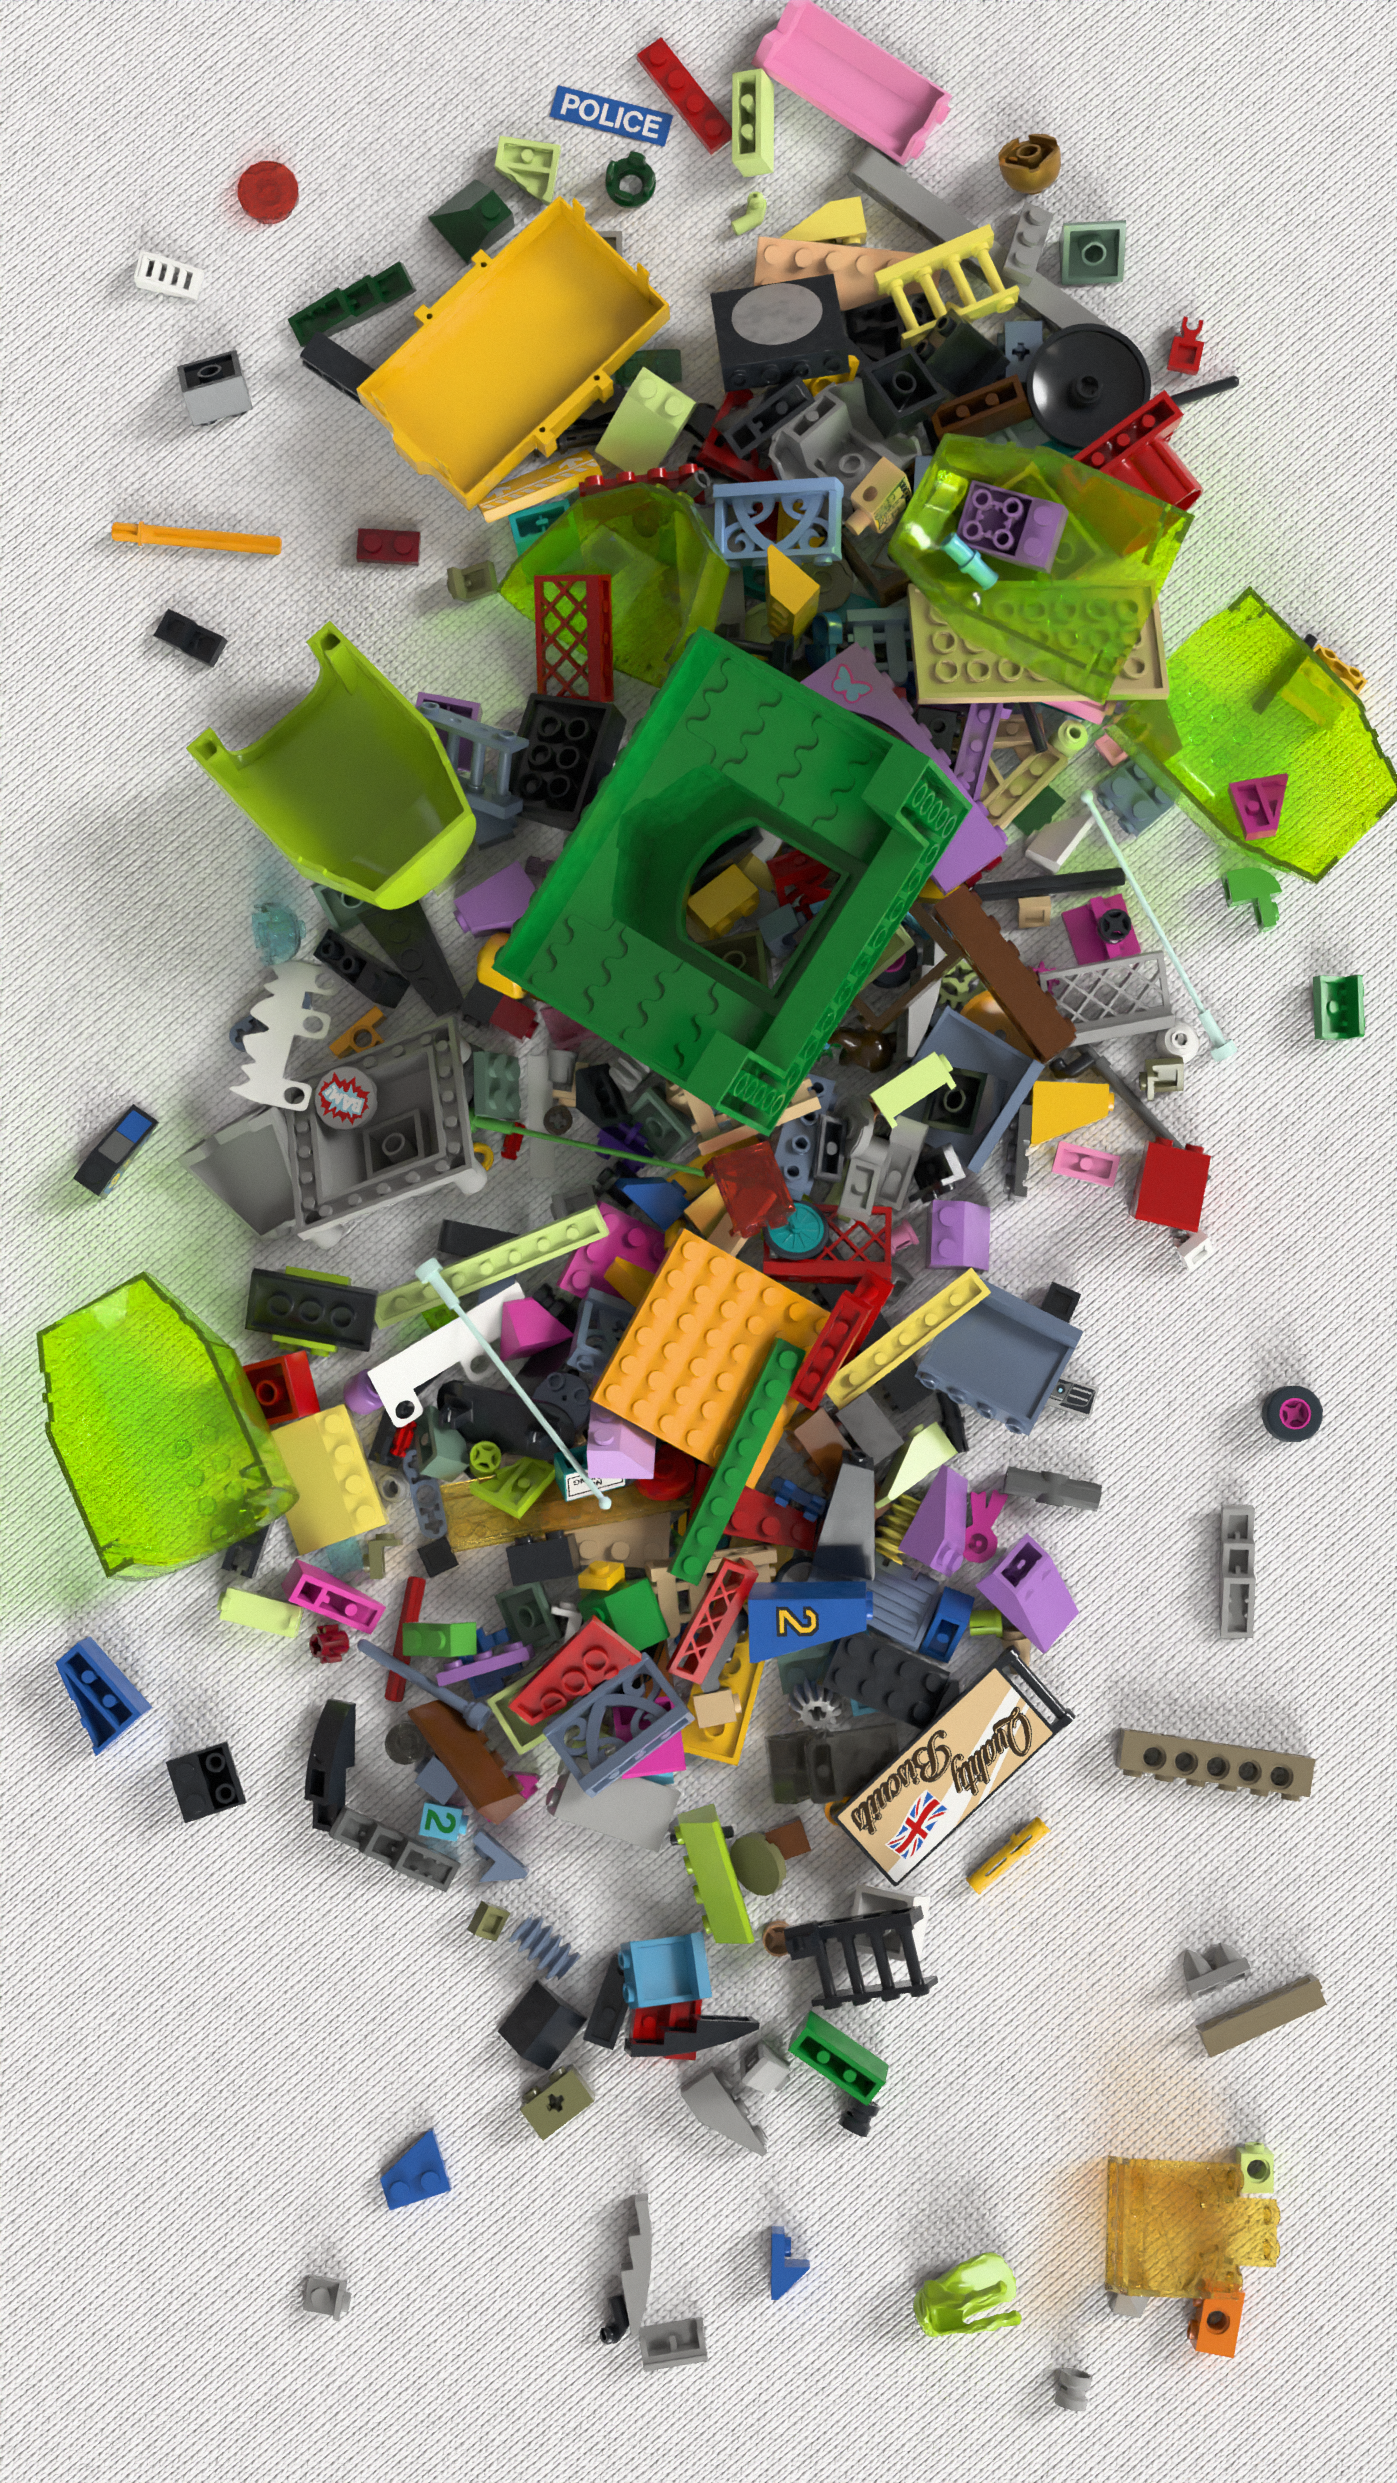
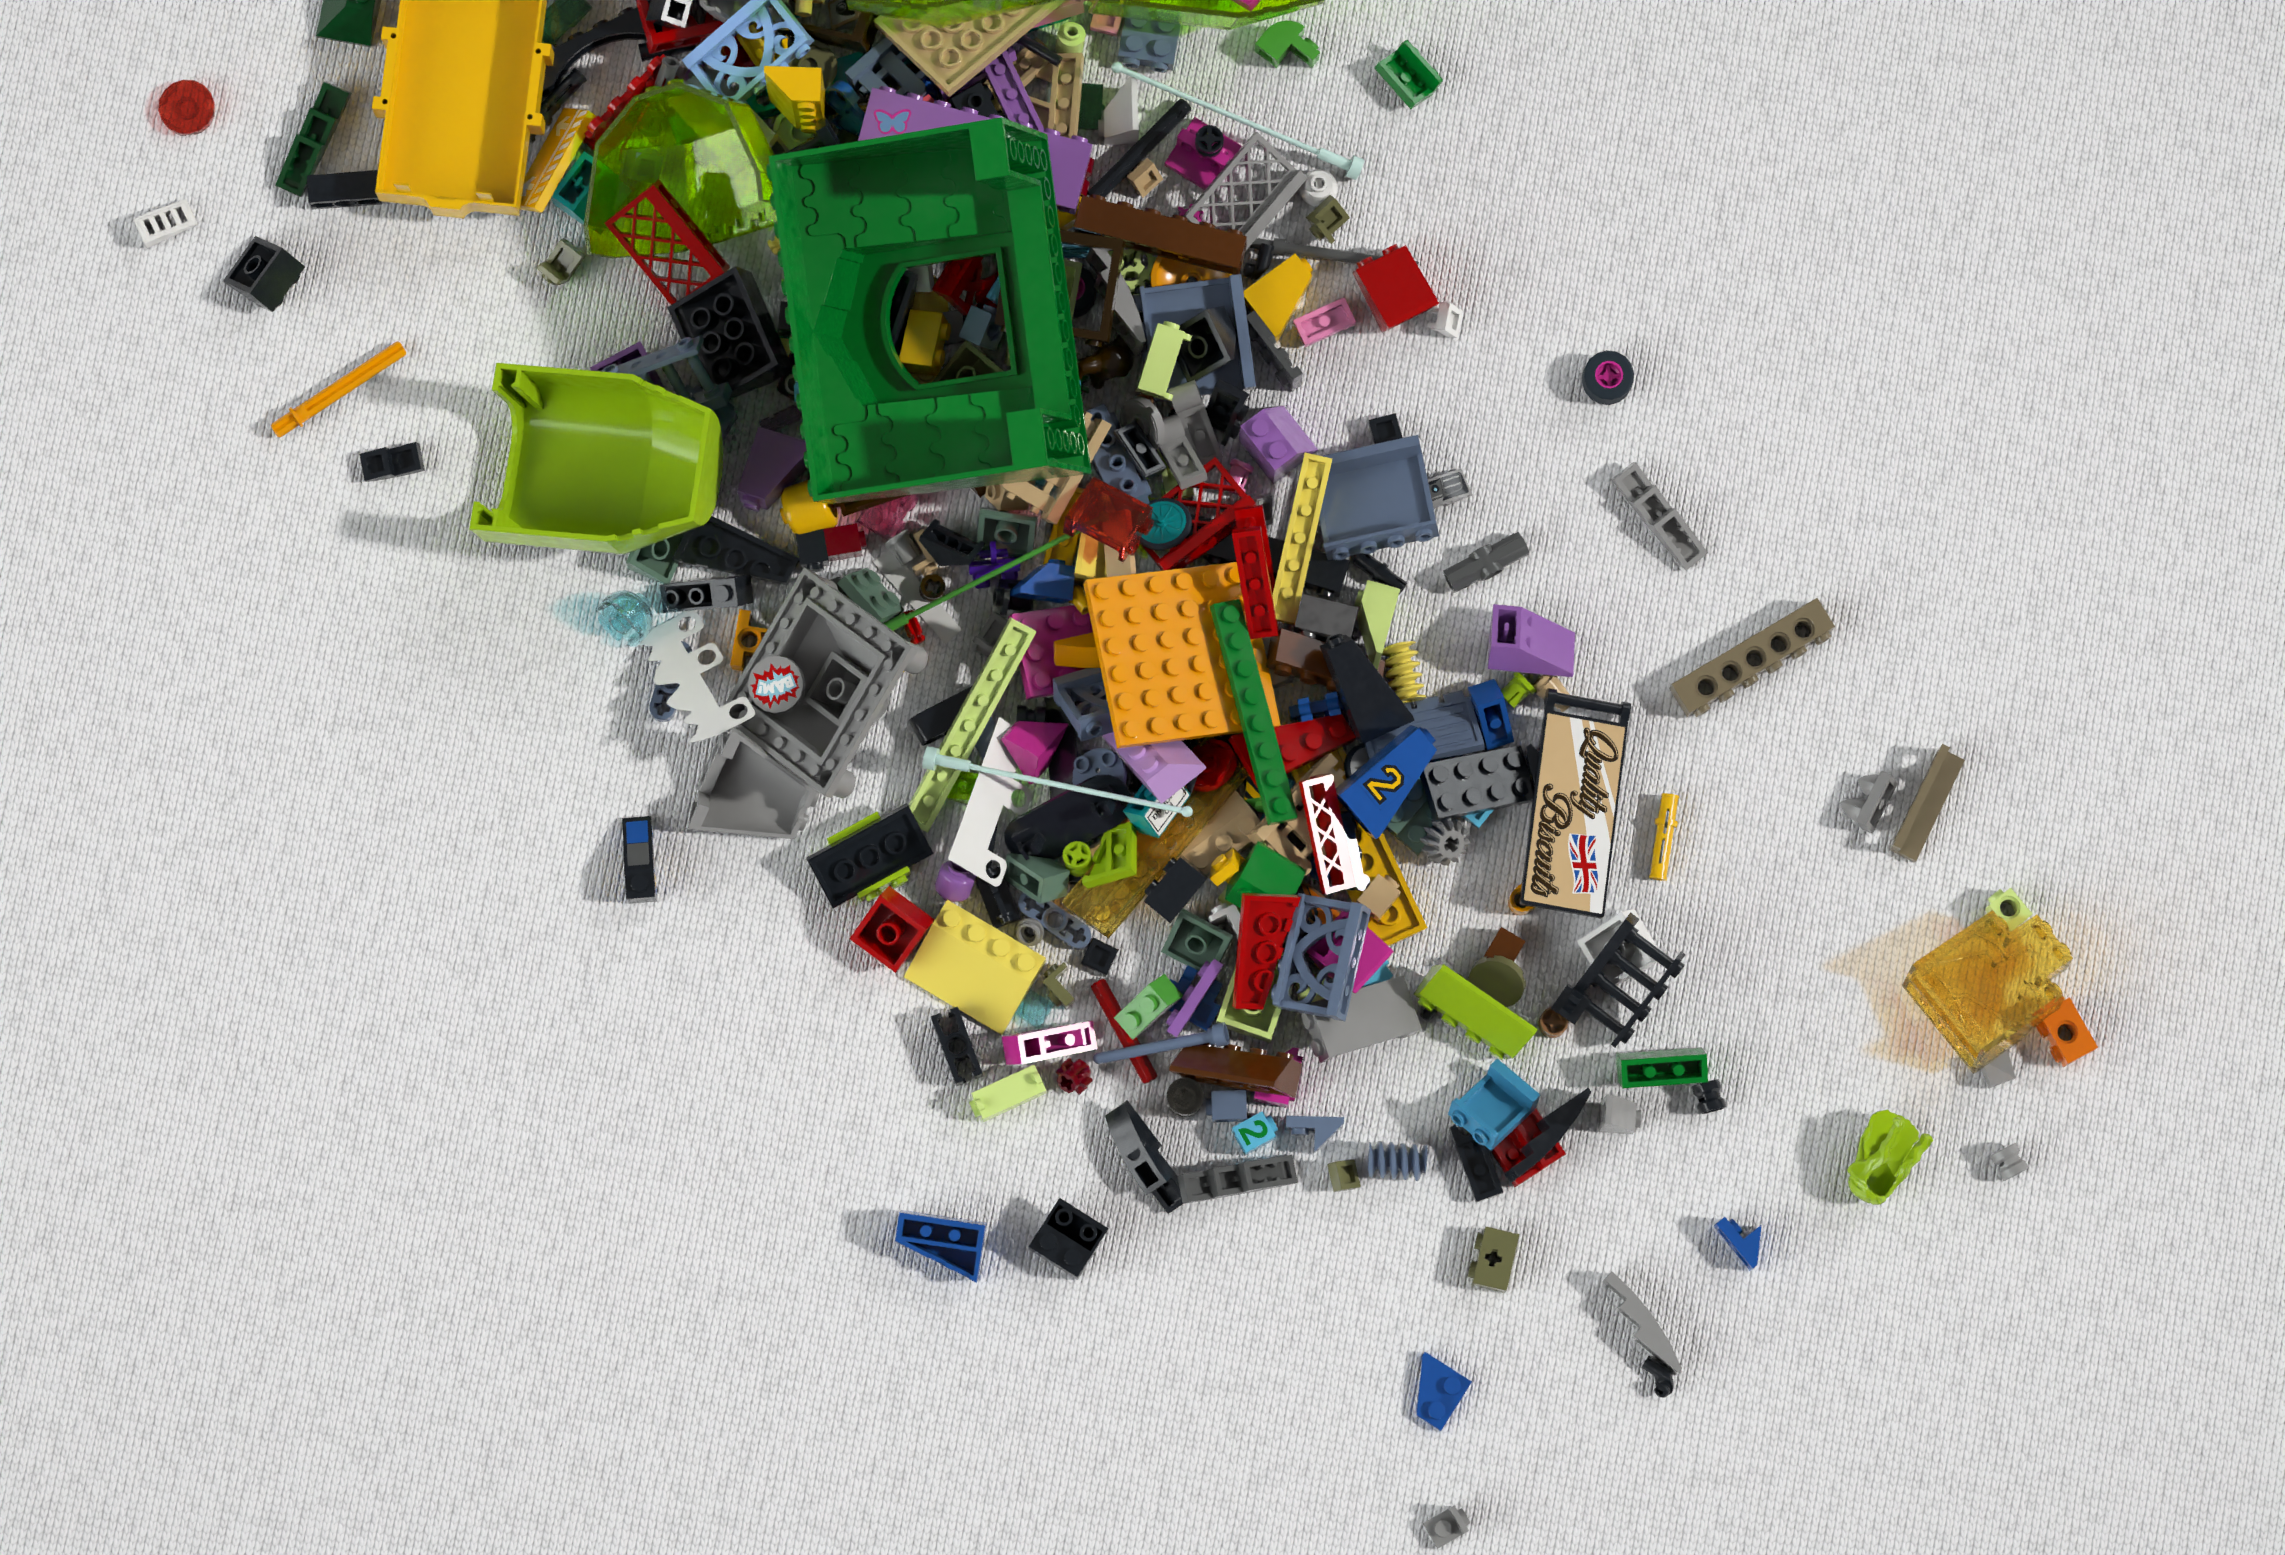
camera: 40 degrees left, 5 degrees down
(157, 1432) = (838, 1013): clear neon green windscreen -> none
(388, 546) = (479, 287): dark red plate -> none
(403, 1439) = (1008, 893): red piece -> none
(541, 2026) = (1440, 1217): black slope -> none
(629, 1073) = (956, 508): light grey gear -> none
(645, 424) = (596, 57): yellowish green slope -> none
(673, 2344) = (1712, 1358): light grey hinge -> none
(717, 2109) = (1608, 1172): light grey slope -> none
(827, 1763) = (1486, 873): clear smoke piece -> none
(940, 1524) = (1430, 652): medium lavender slope -> none
(979, 1537) = (1465, 639): dark pink piece -> none

